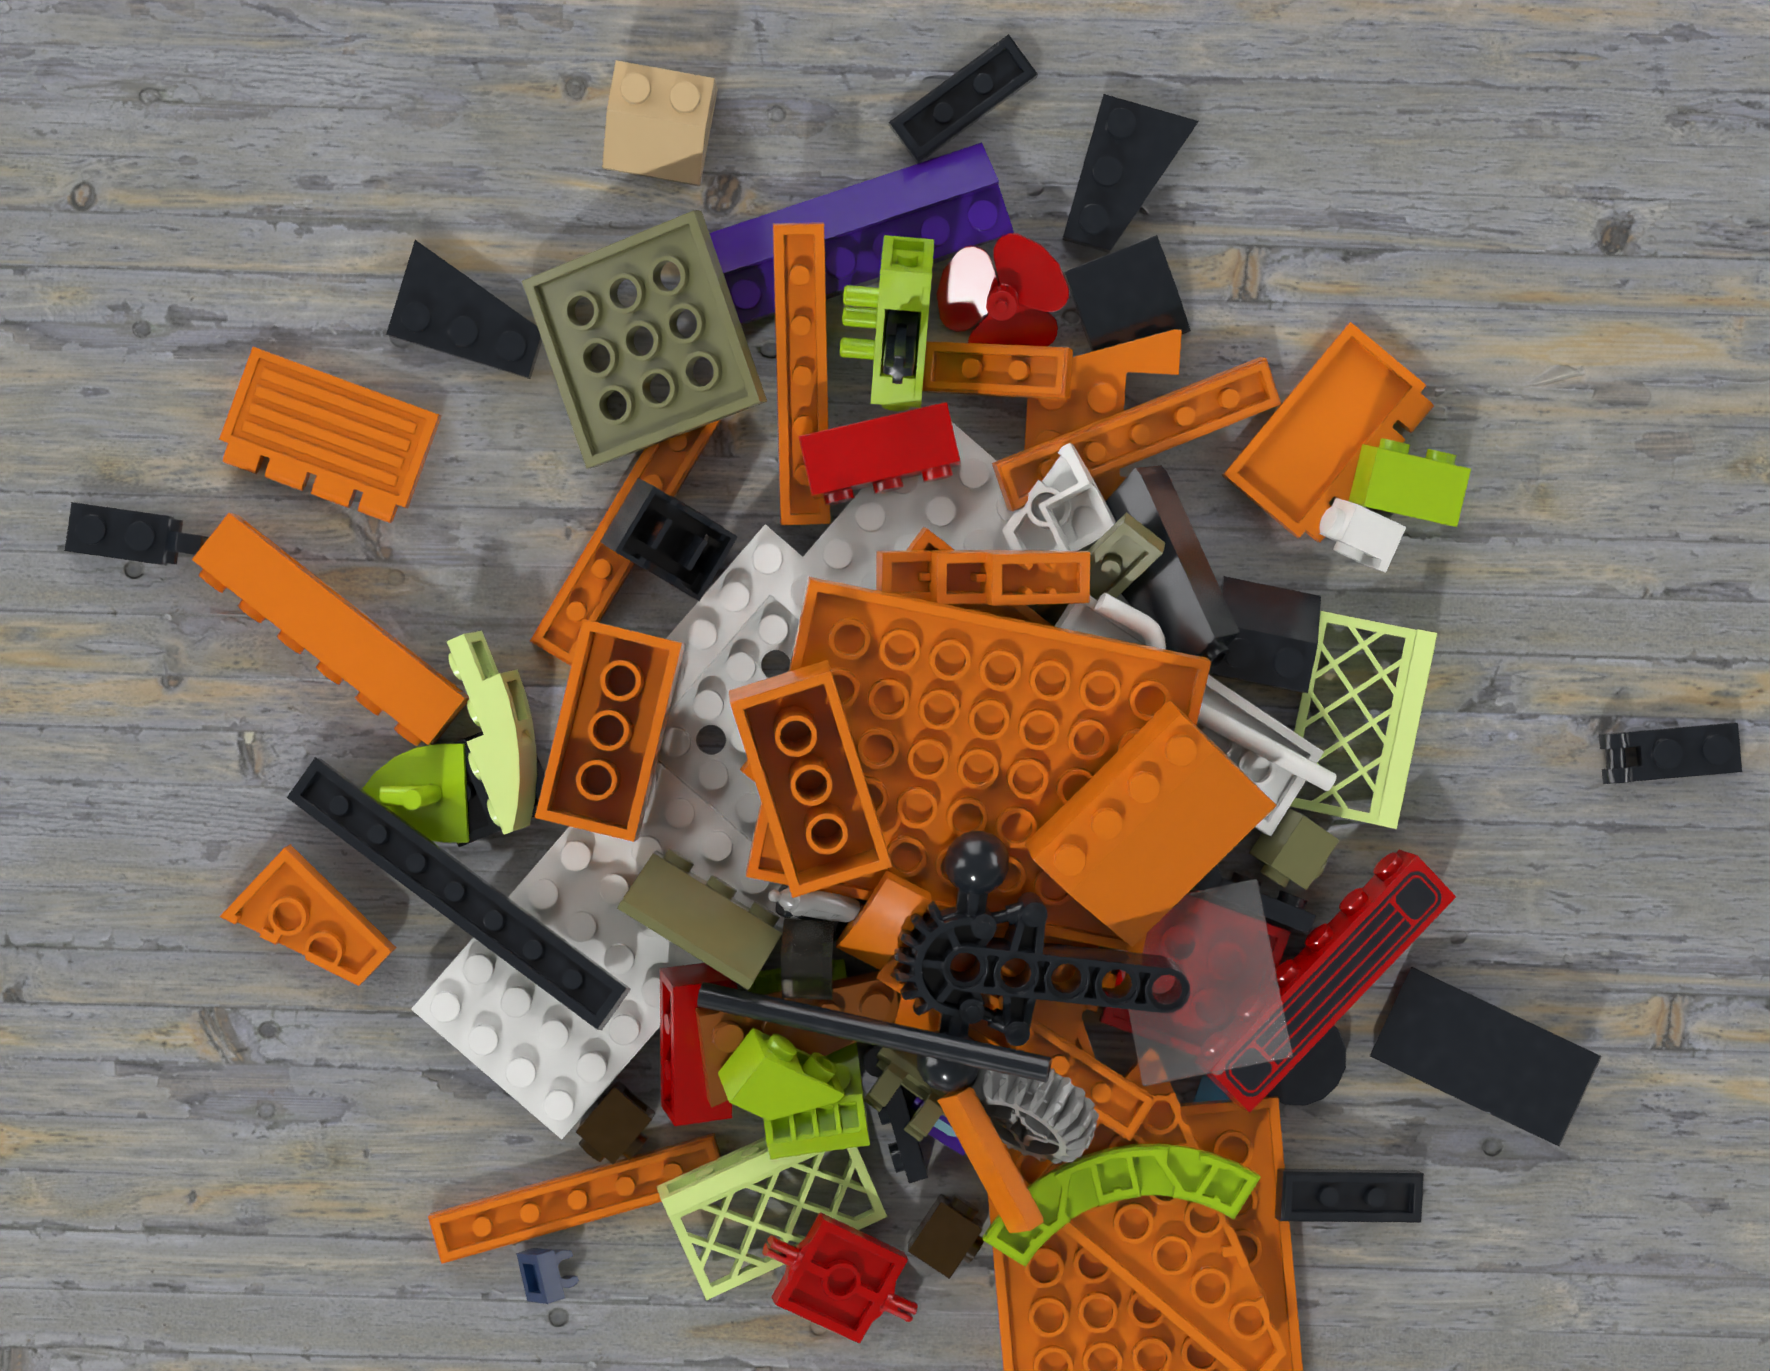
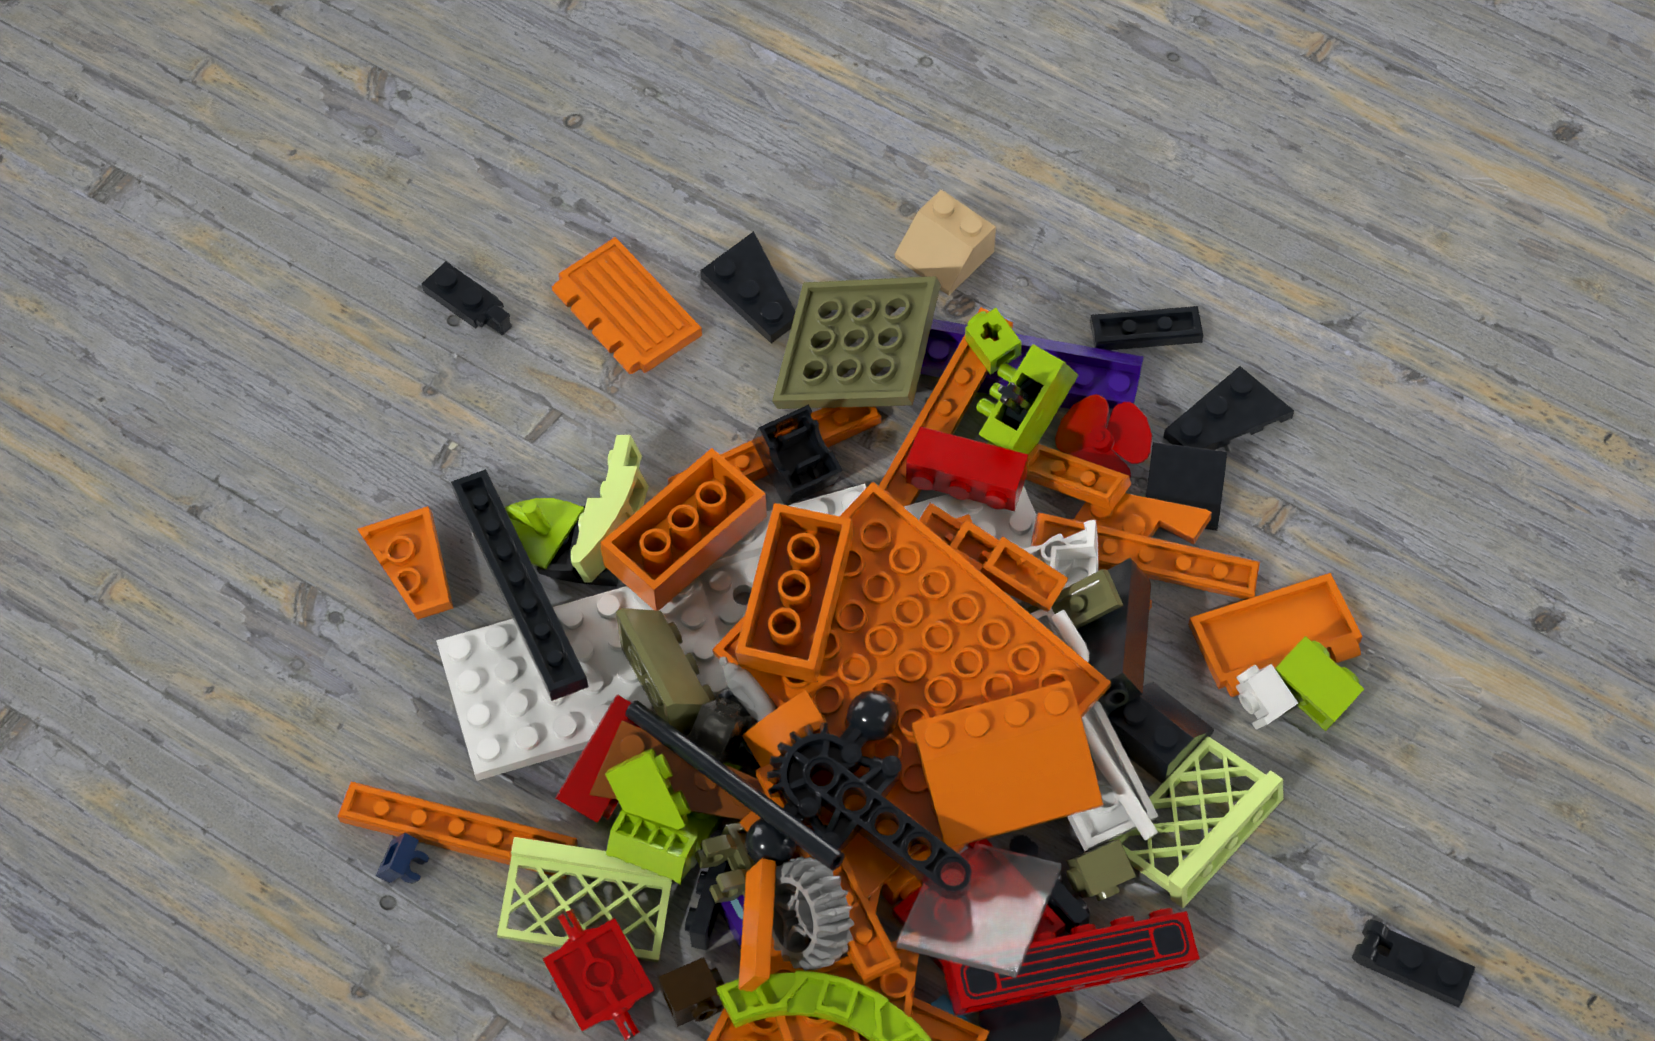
camera: 30 degrees right, 30 degrees down
(330, 629) = (549, 406): orange brick -> none
(615, 1125) = (516, 790): dark brown brick -> none
(828, 289) = (992, 353): none -> lime brick

